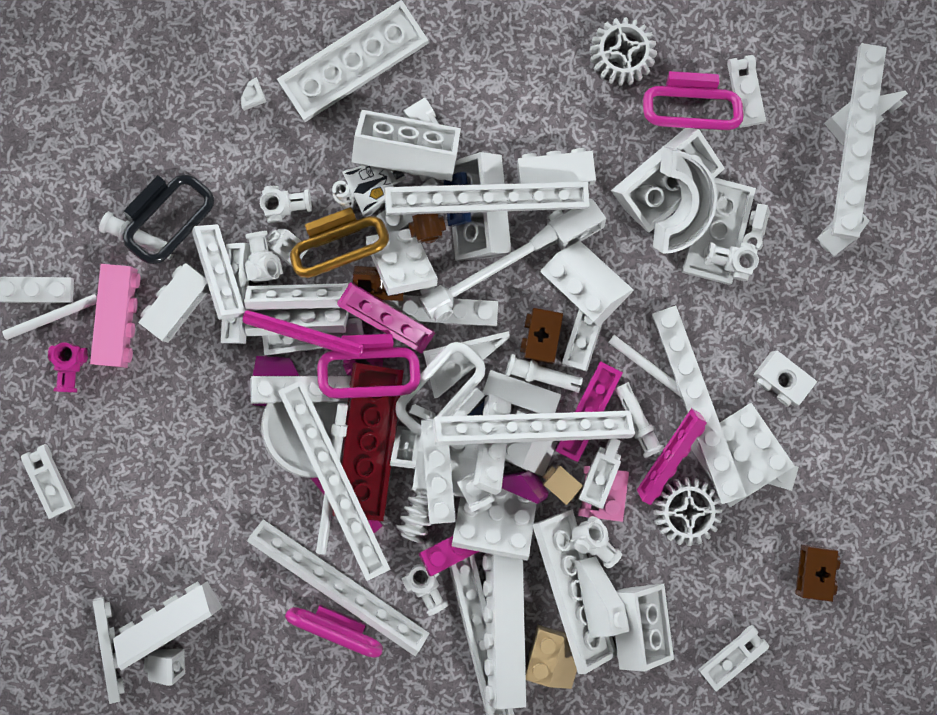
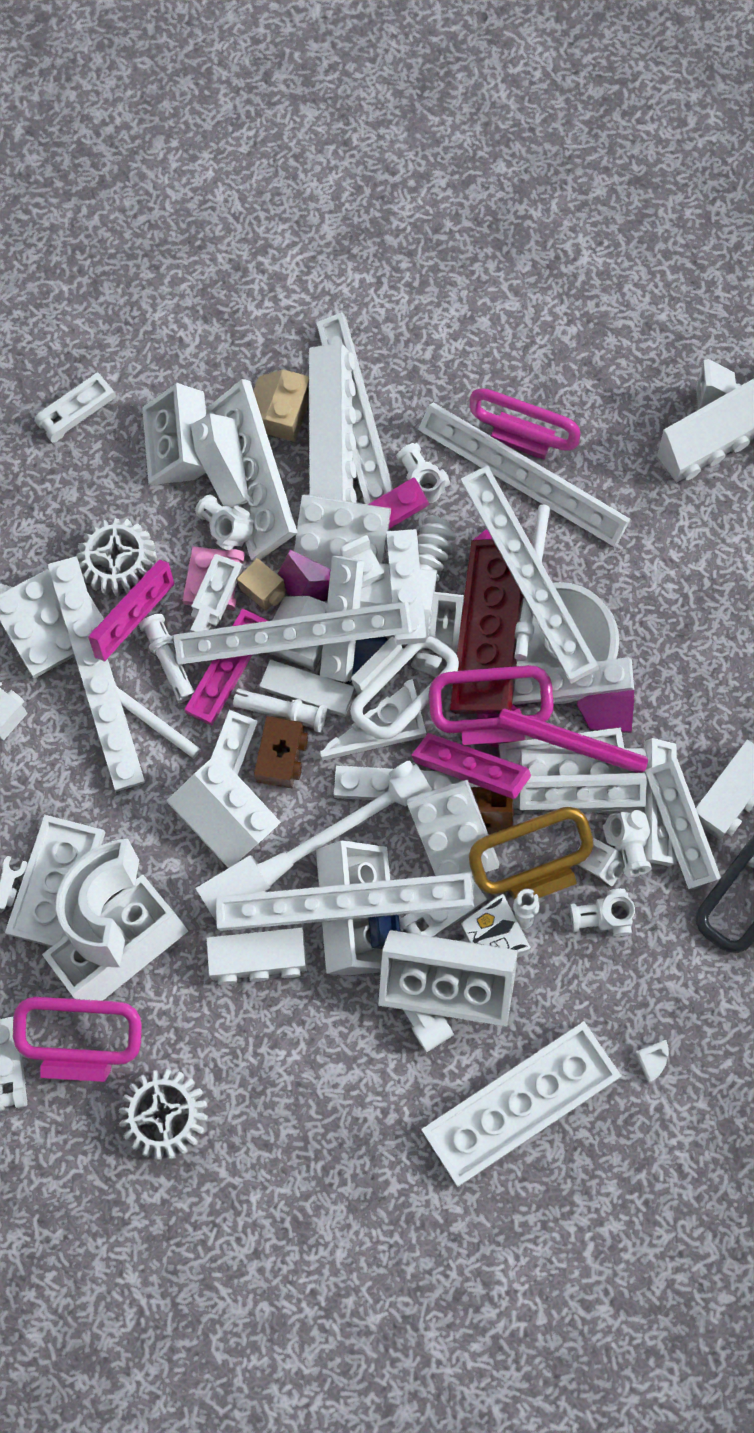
camera: 170 degrees left, 15 degrees down
(427, 227) = (420, 866): reddish brown connector -> none
(730, 259) = (43, 839): white connector -> none

